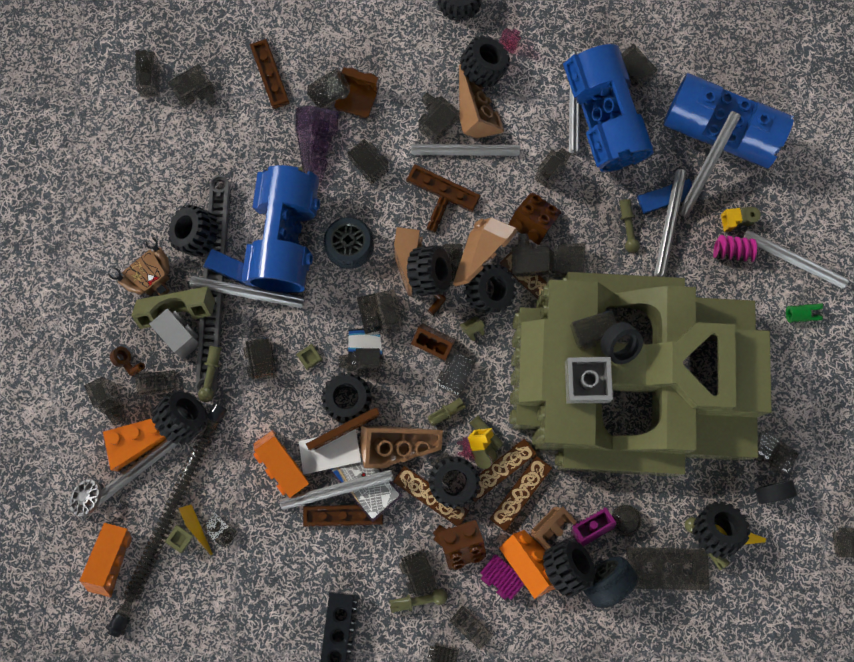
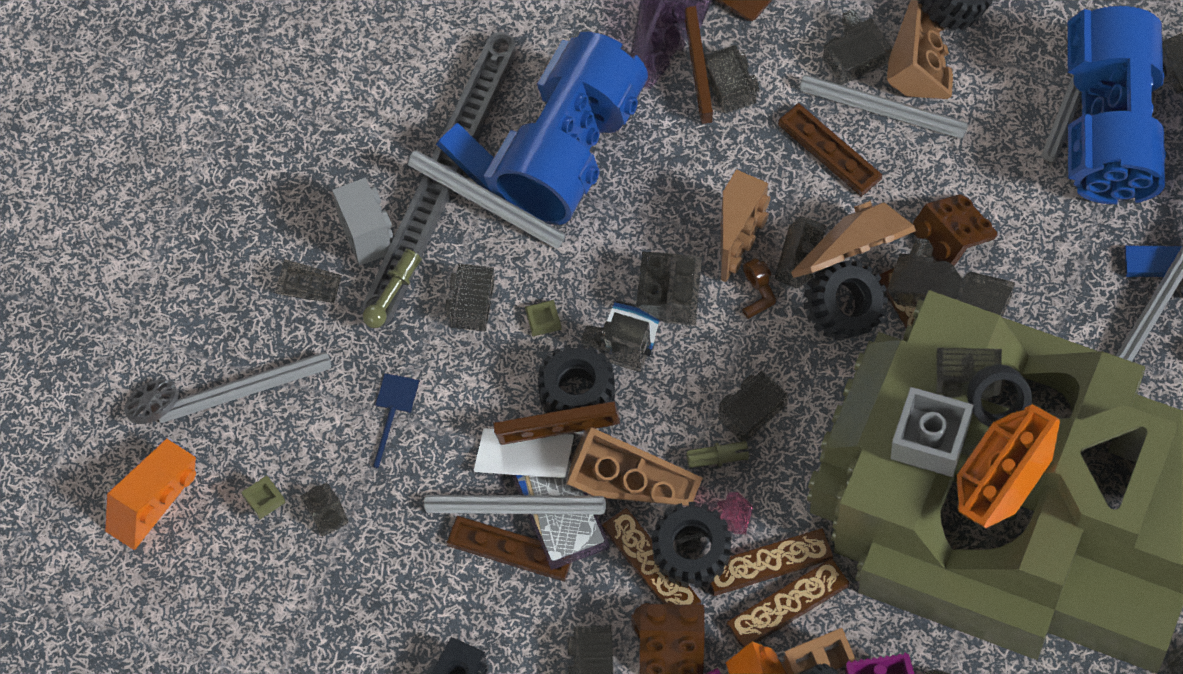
camera: 25 degrees right, 15 degrees down
(106, 397) = (232, 277): clear smoke hinge -> none
(121, 618) = (299, 426): clear smoke hose -> none
(125, 358) = (273, 233): reddish brown plate -> none
(130, 442) = (250, 346): orange wedge -> none
(147, 273) = (352, 132): medium nougat torso -> none
(179, 417) = (327, 330): black tyre -> none
(192, 523) = (289, 484): yellow sticker -> none
(193, 230) = (440, 92): black tyre -> none
(197, 302) = (402, 184): olive arch -> none
(238, 437) = (395, 394): none -> dark blue piece
(279, 464) = (445, 444): orange wedge -> none
(346, 159) = (698, 65): none -> reddish brown tile
(351, 254) = (659, 179): wheel -> none
(429, 270) = (761, 239): black tyre -> none
(433, 341) = (734, 350): reddish brown brick -> none
(437, 214) = (807, 182): reddish brown axle -> none
(471, 326) = (802, 348): olive tile -> none
(478, 423) = (767, 502): olive axle -> none
(482, 448) = (753, 517): leg -> none
(552, 167) = (1004, 165): clear smoke hinge -> none
(632, 245) = (1092, 313): olive pin -> none
(640, 389) = (1006, 465): none -> orange wedge

